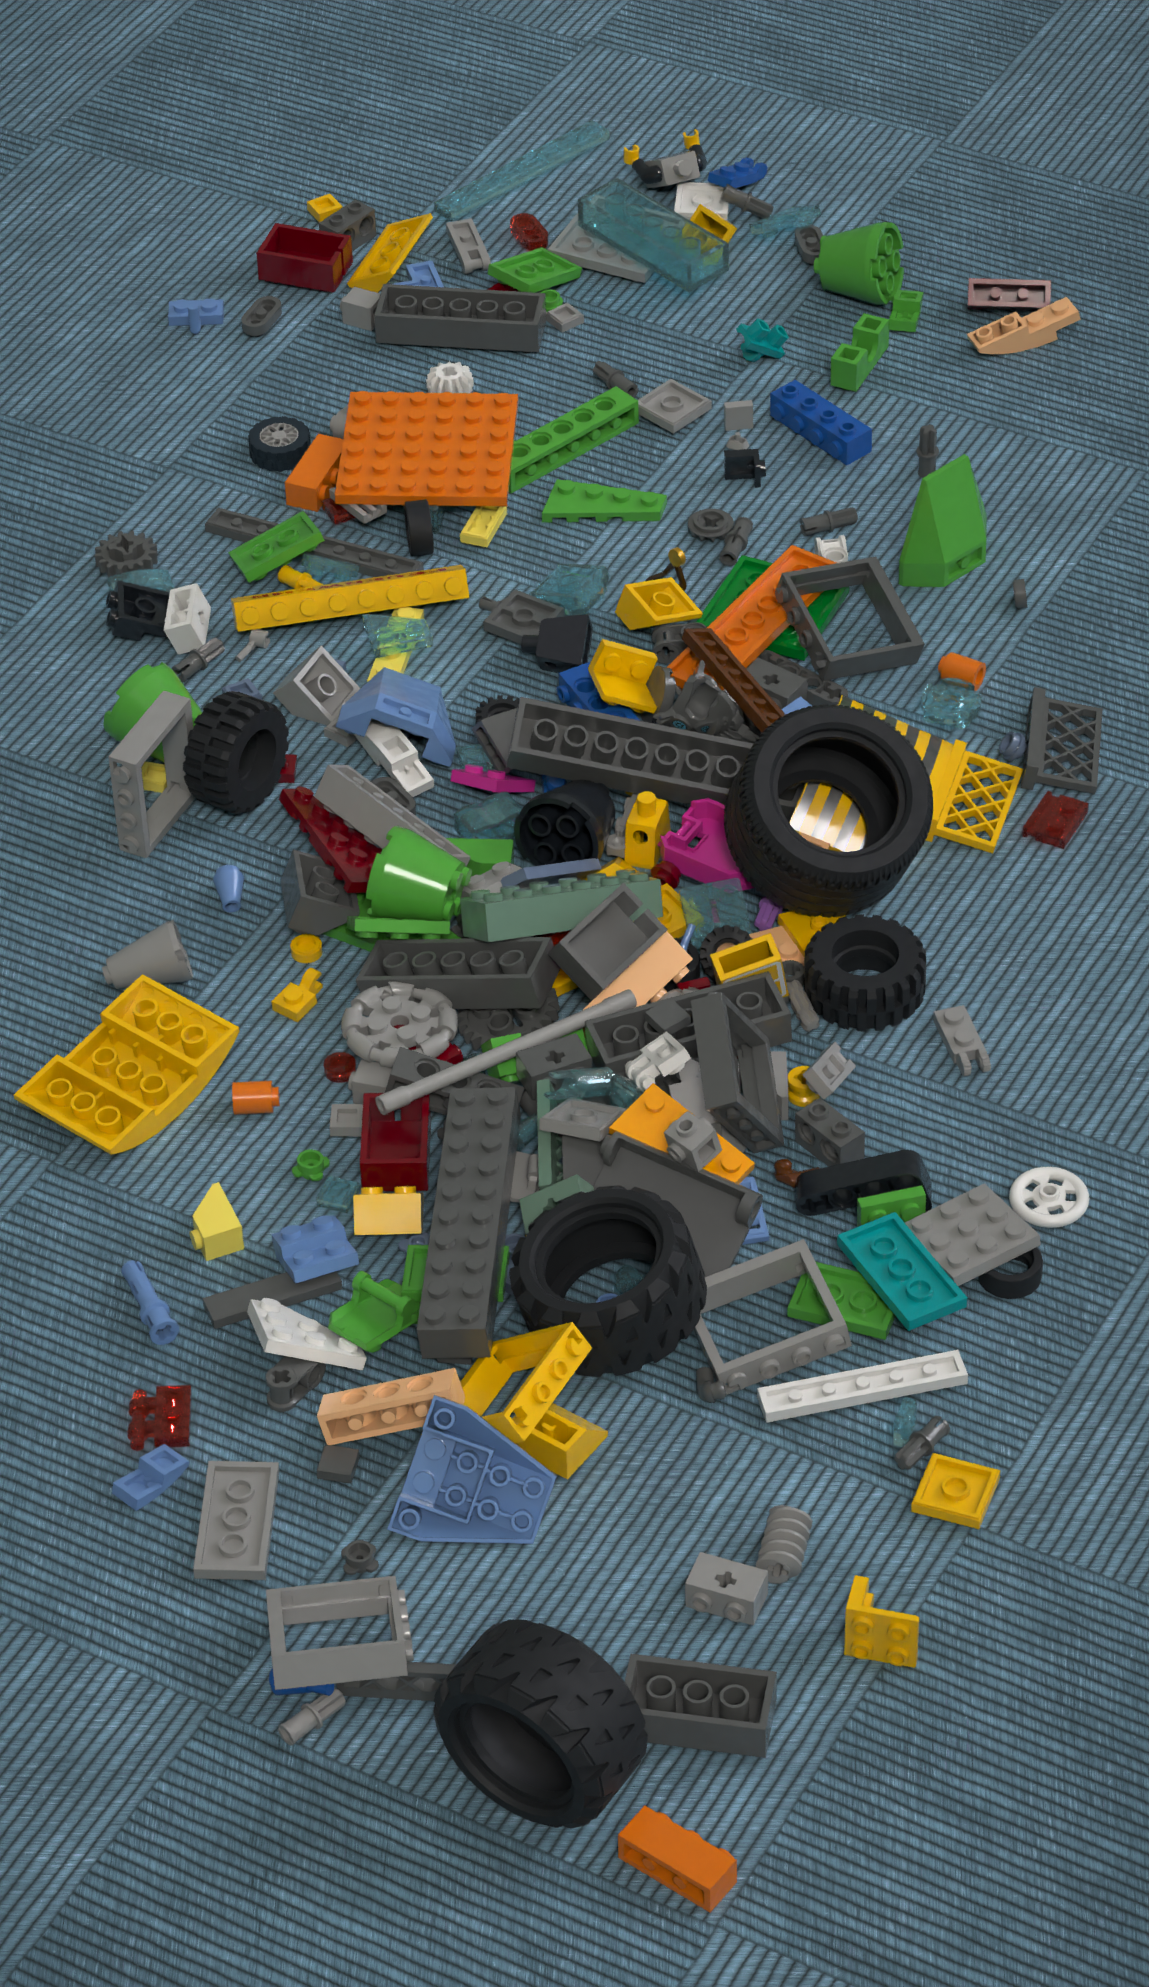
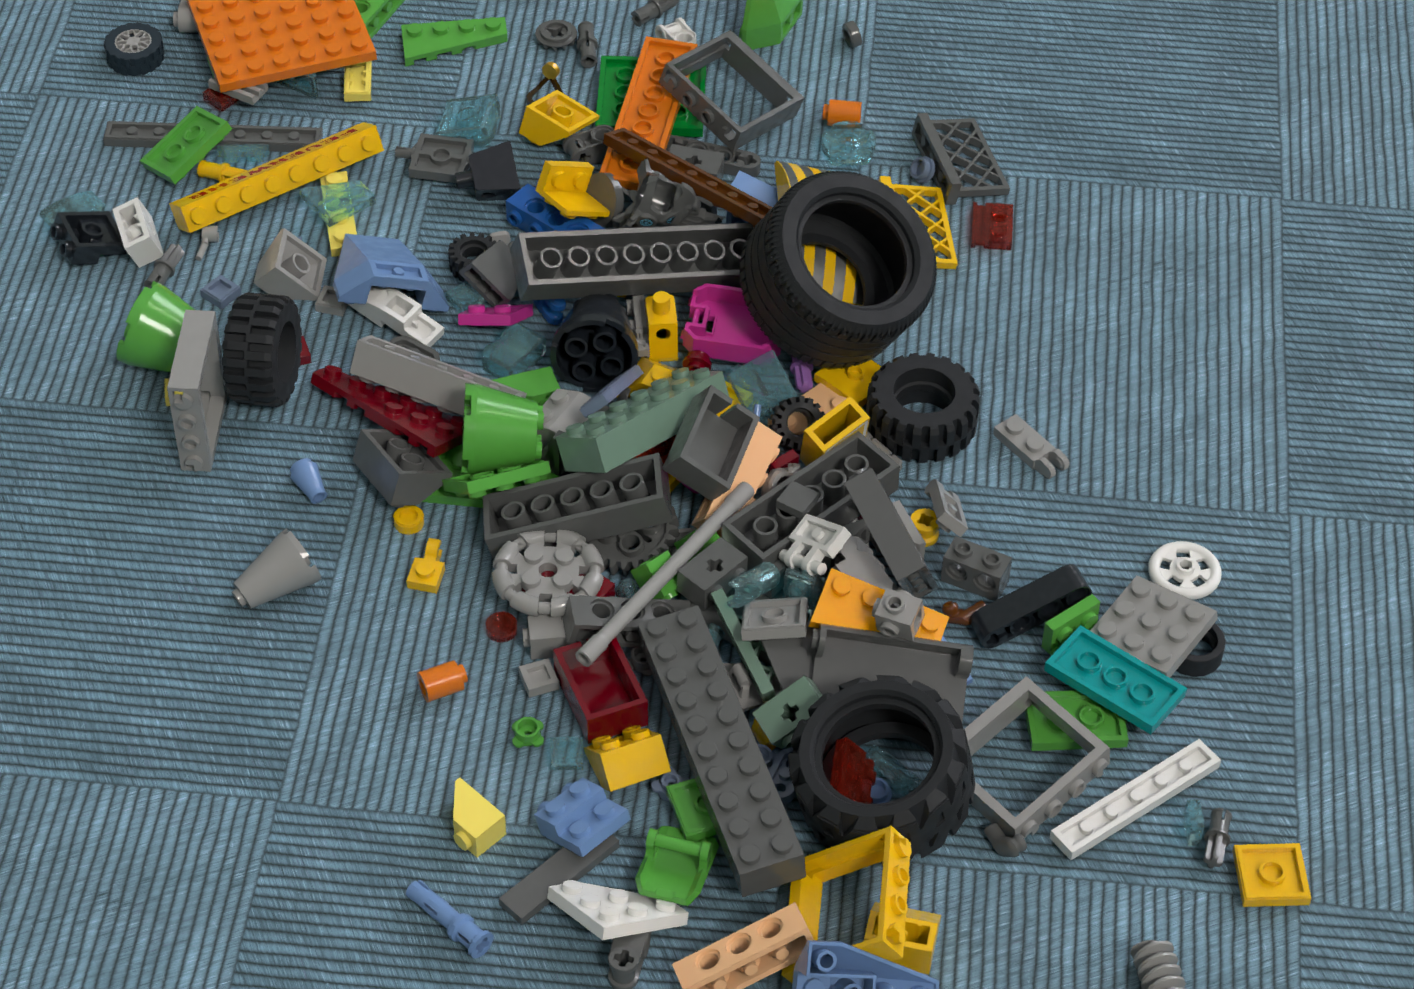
camera: 25 degrees left, 5 degrees up
(125, 553) = (45, 185): dark grey gear -> none
(132, 1068) = (313, 685): yellow slope -> none
(314, 474) = (184, 68): orange brick -> none
(418, 527) = (307, 97): black tyre -> none
(579, 1273) = (852, 772): none -> clear red plate

